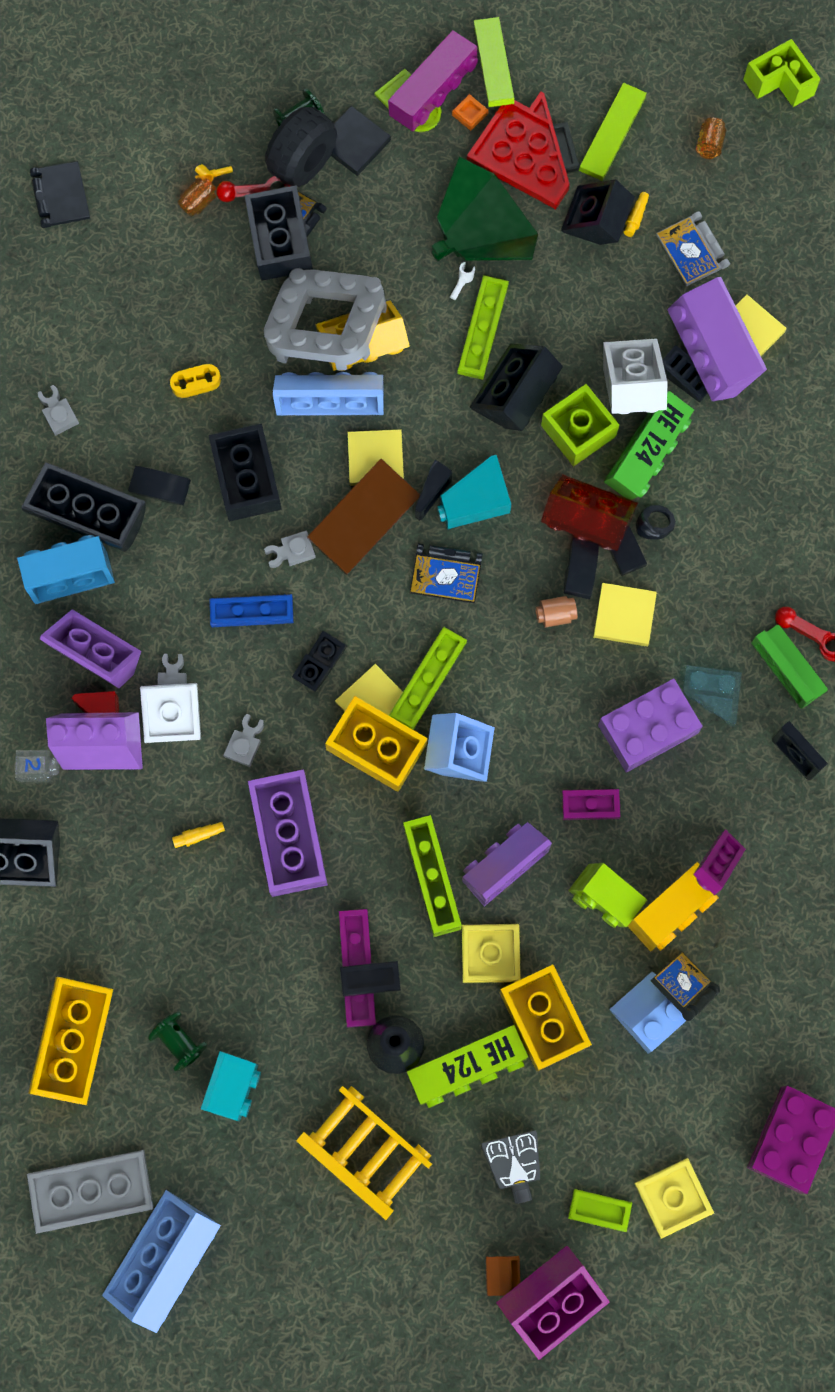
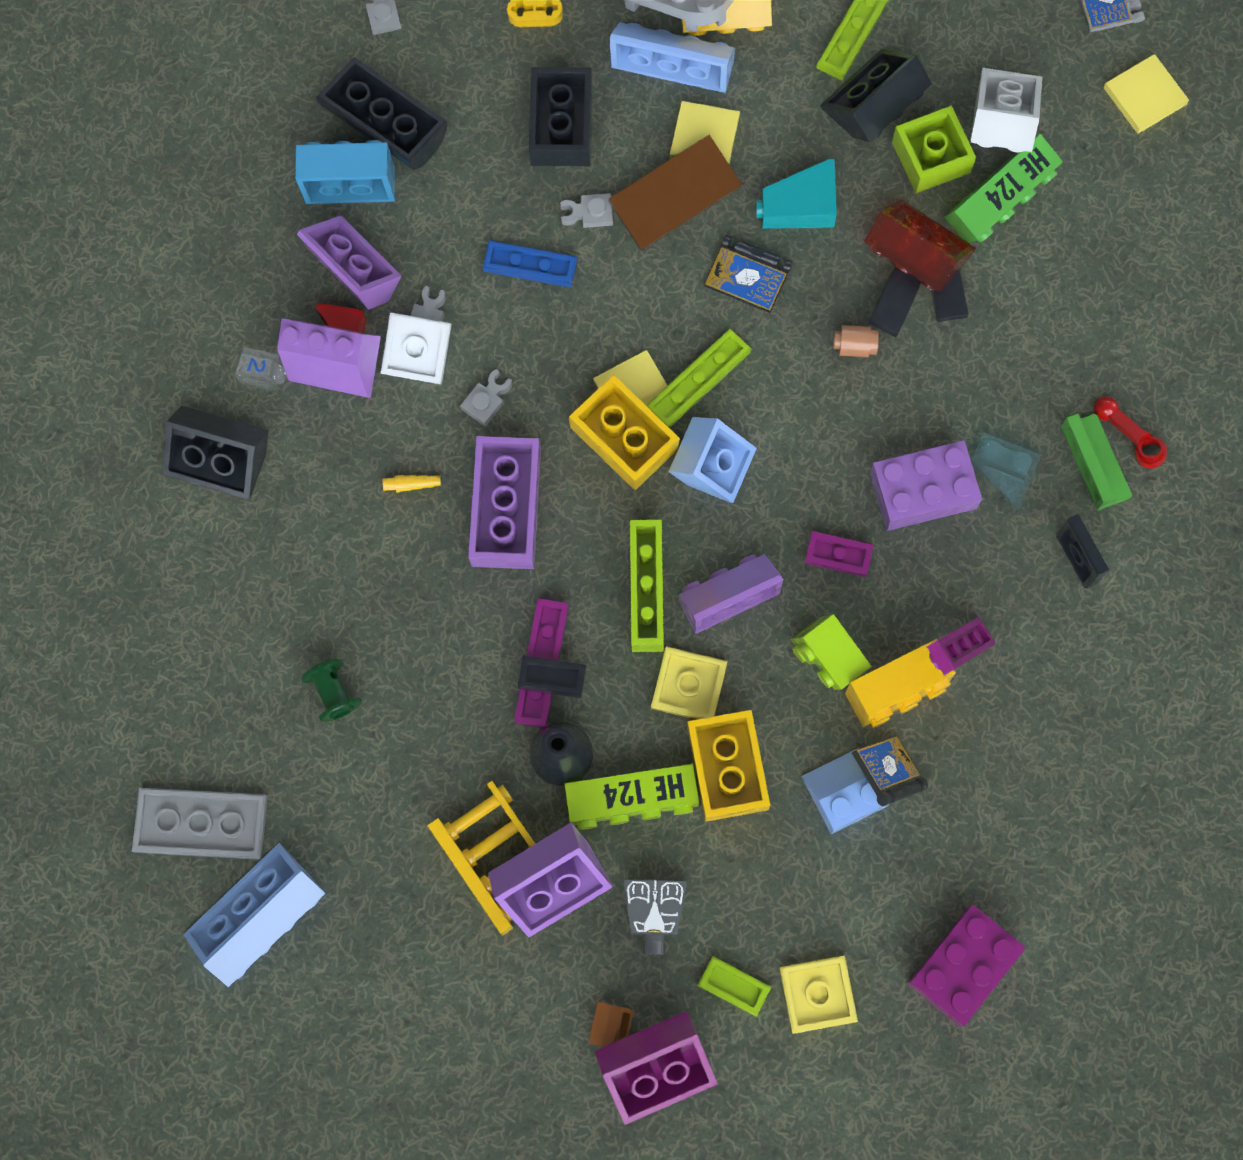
camera: 20 degrees right, 0 degrees up
(70, 1041) = (219, 661): yellow brick -> none
(159, 485) = (468, 110): black slope -> none
(230, 1087) = (373, 751): teal slope -> none
(319, 661) = (588, 334): black slope -> none
(417, 1162) = (549, 880): none -> medium lavender slope
(436, 483) = (763, 174): black slope -> none
(625, 614) = (930, 363): light yellow tile -> none
(645, 529) = (977, 280): black piece -> none
(681, 381) = (1066, 107): black slope -> none
(717, 340) = (1108, 93): medium lavender slope -> none

